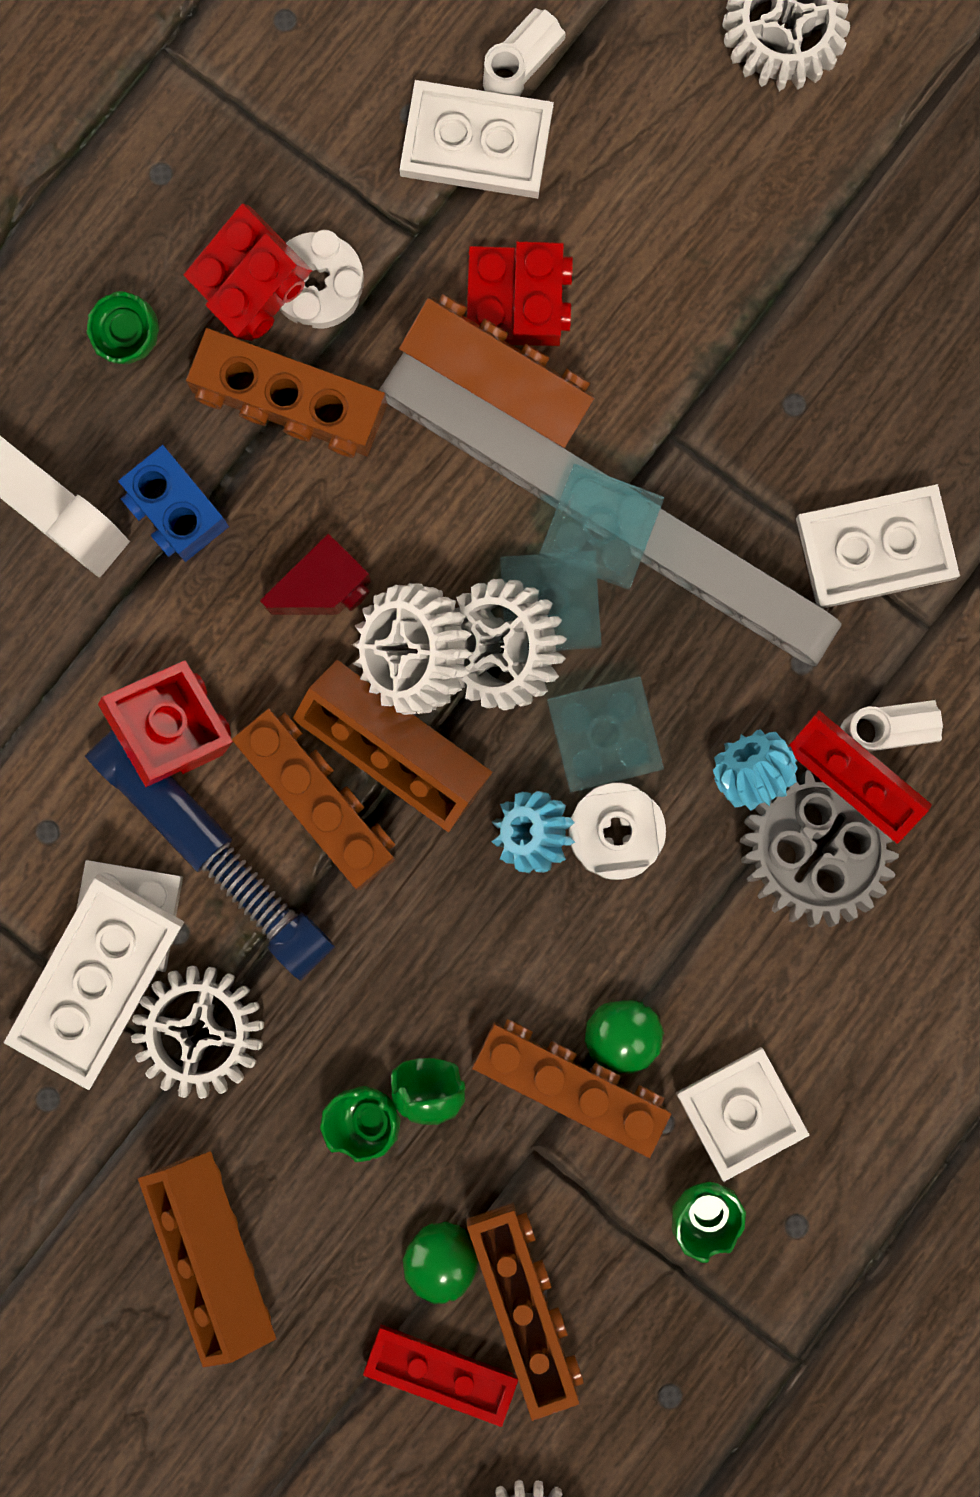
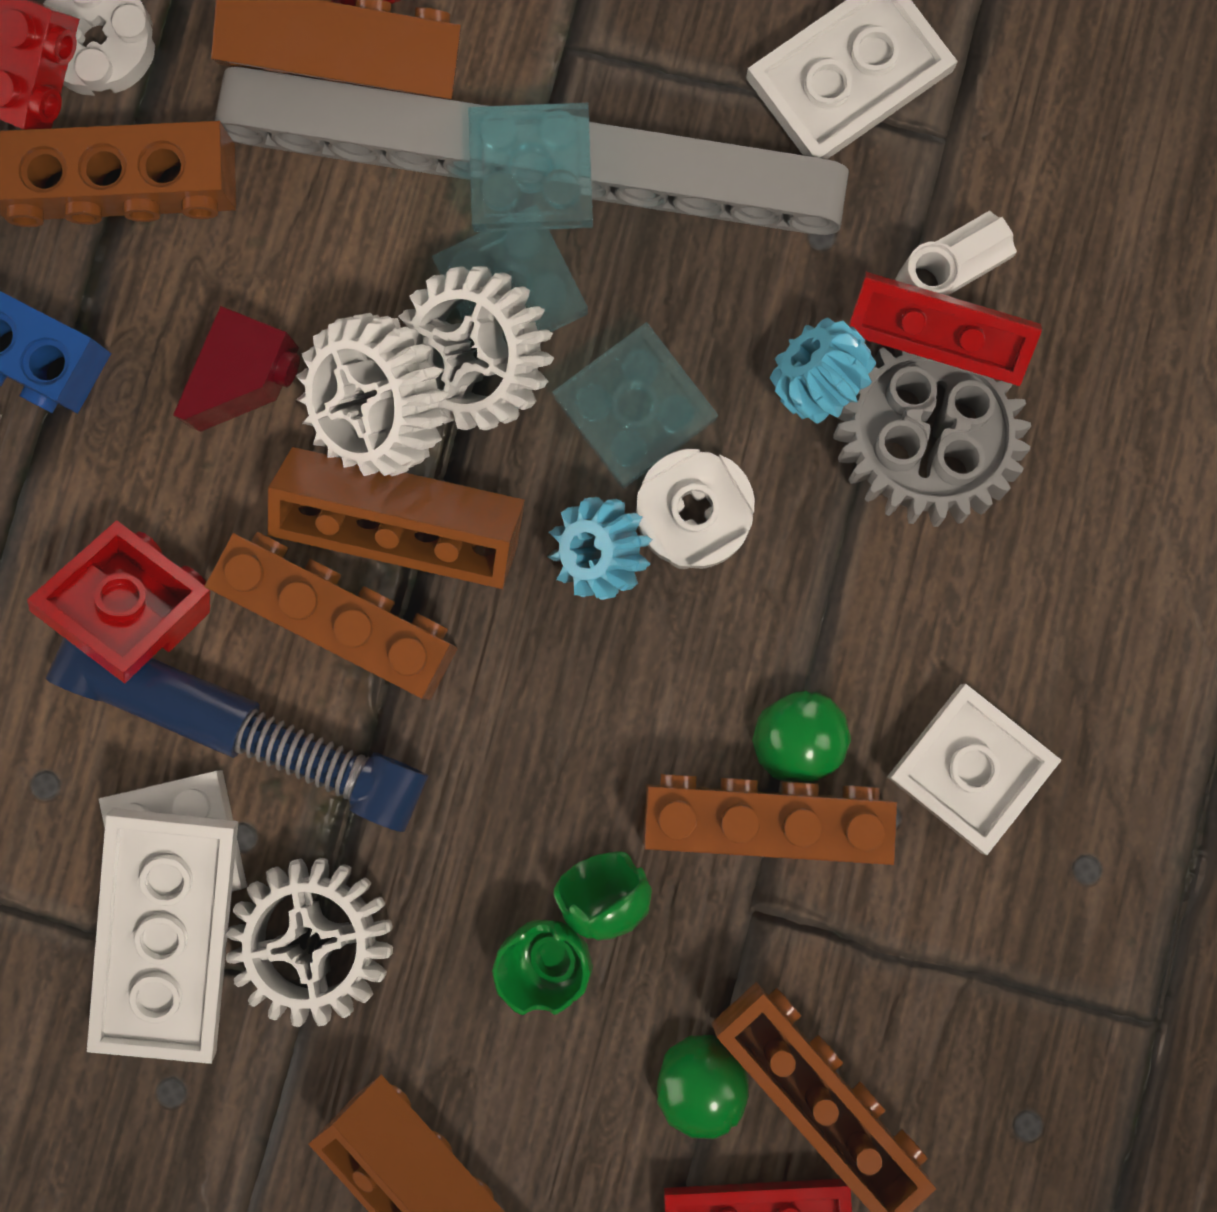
camera: 20 degrees left, 0 degrees up
(707, 1220) = (988, 907): green hair -> none

